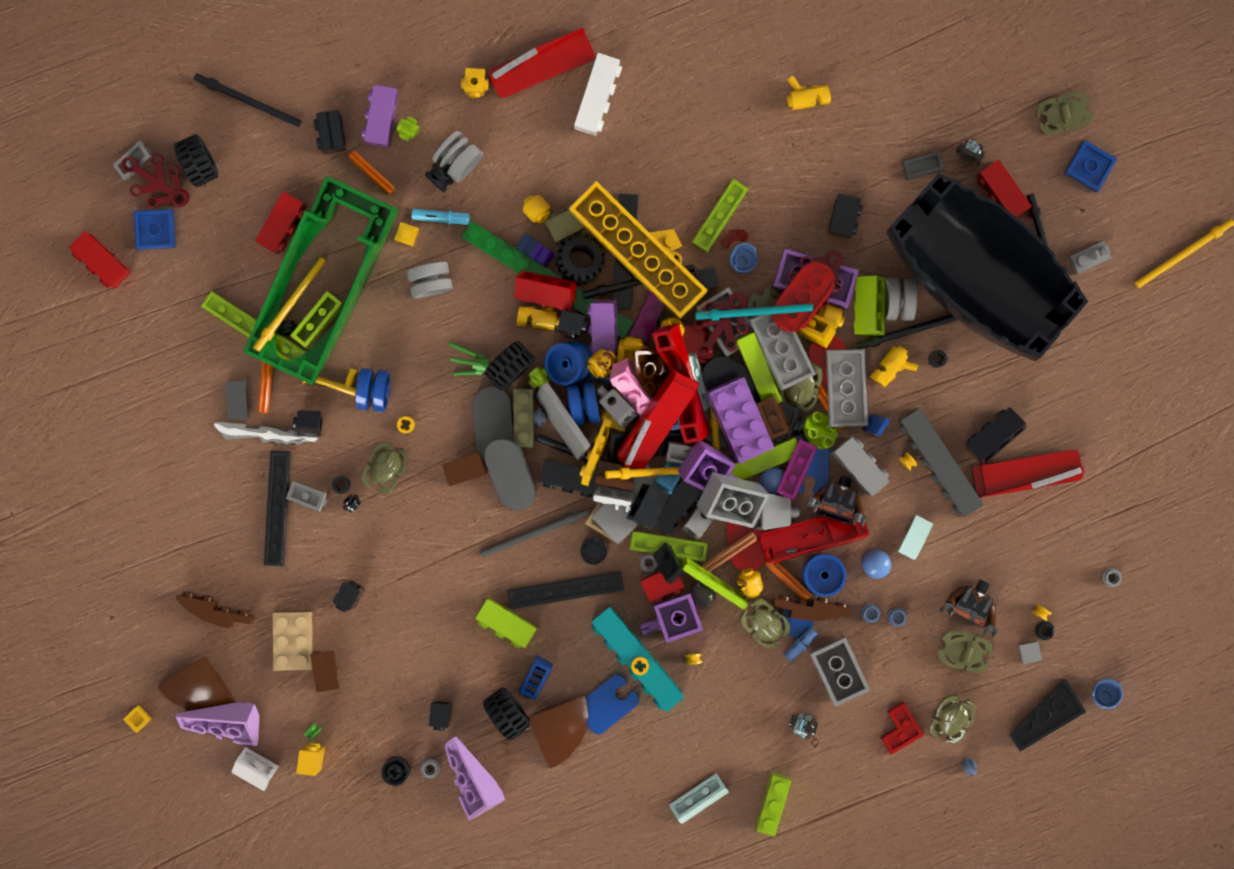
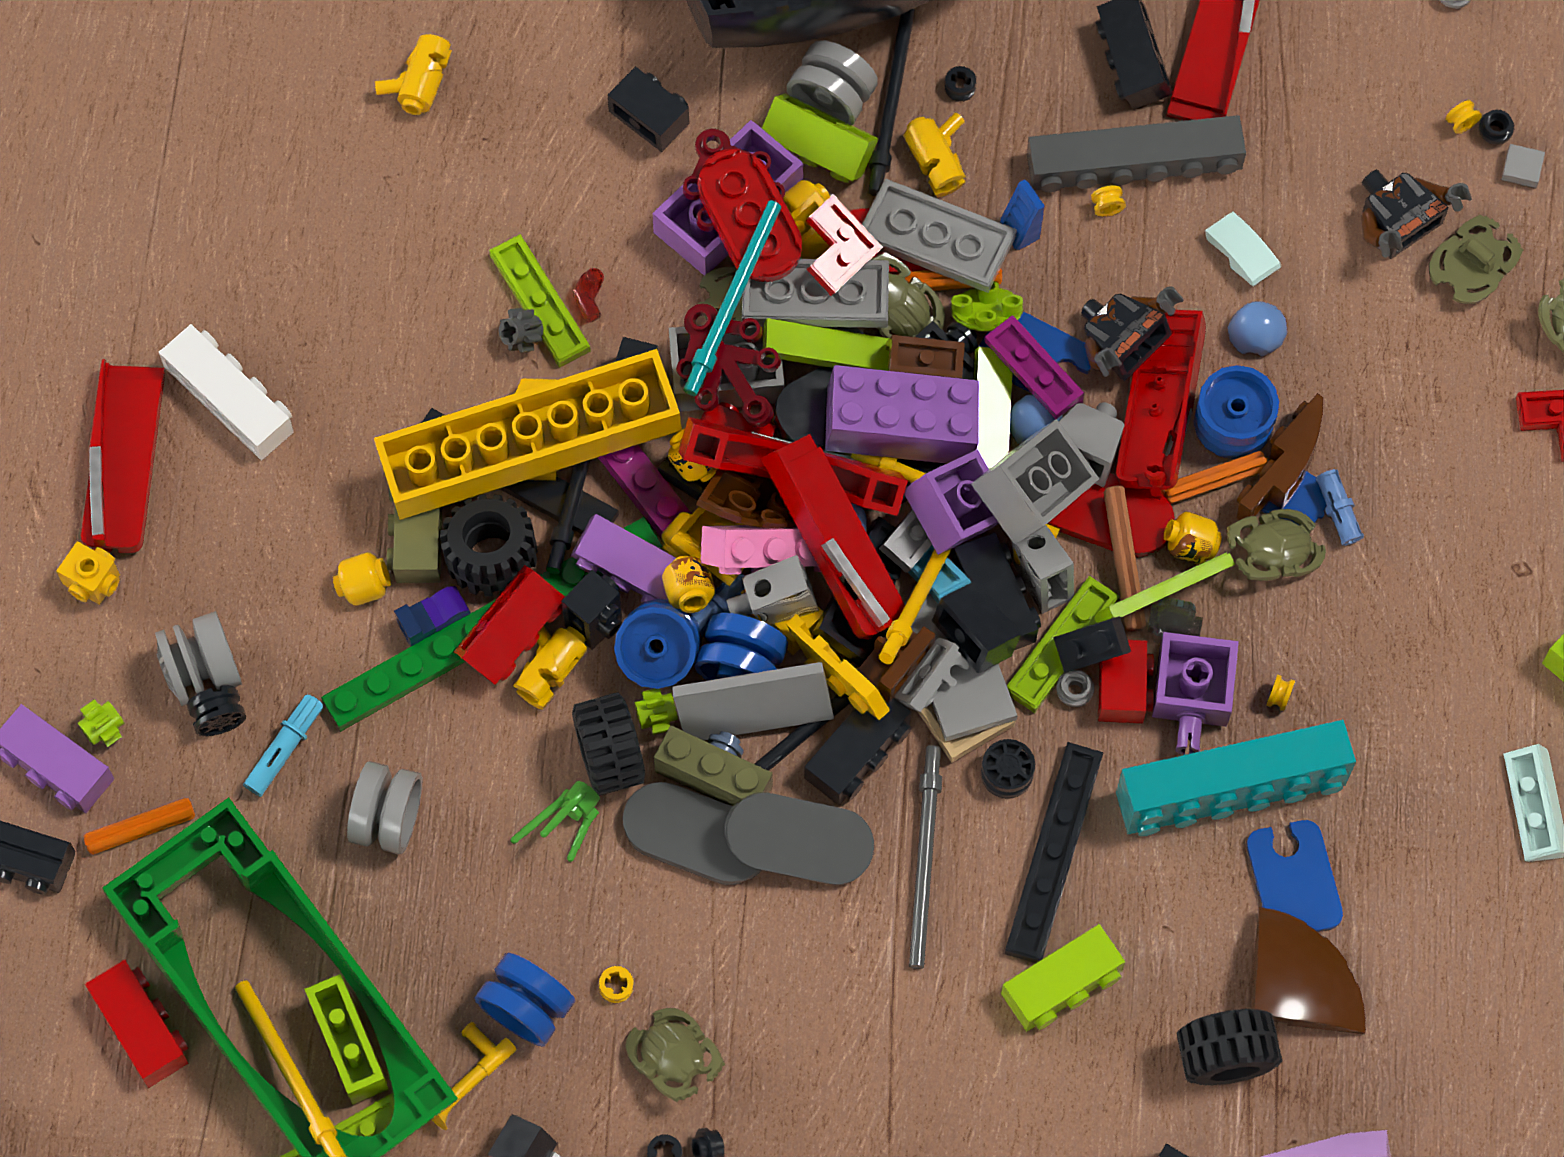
camera: 60 degrees left, 20 degrees down
(287, 327) = (331, 1102): black plate -> none
(406, 234) = (281, 819): yellow plate -> none
(464, 469) = (750, 915): reddish brown panel -> none
(542, 663) = (1199, 970): blue slope -> none
(636, 670) = (1244, 754): yellow bush -> none
(697, 216) = (521, 330): none -> dark grey gear
(743, 258) = (631, 292): medium blue hair -> none
(803, 725) = (1484, 566): head -> none
(811, 352) = (848, 241): none -> tile
(839, 671) = (1415, 464): light grey brick -> none
(860, 466) = (1079, 269): light grey brick -> none
(870, 613) = (1339, 375): sand blue plate -> none
(897, 617) = (1366, 338): sand blue plate -> none

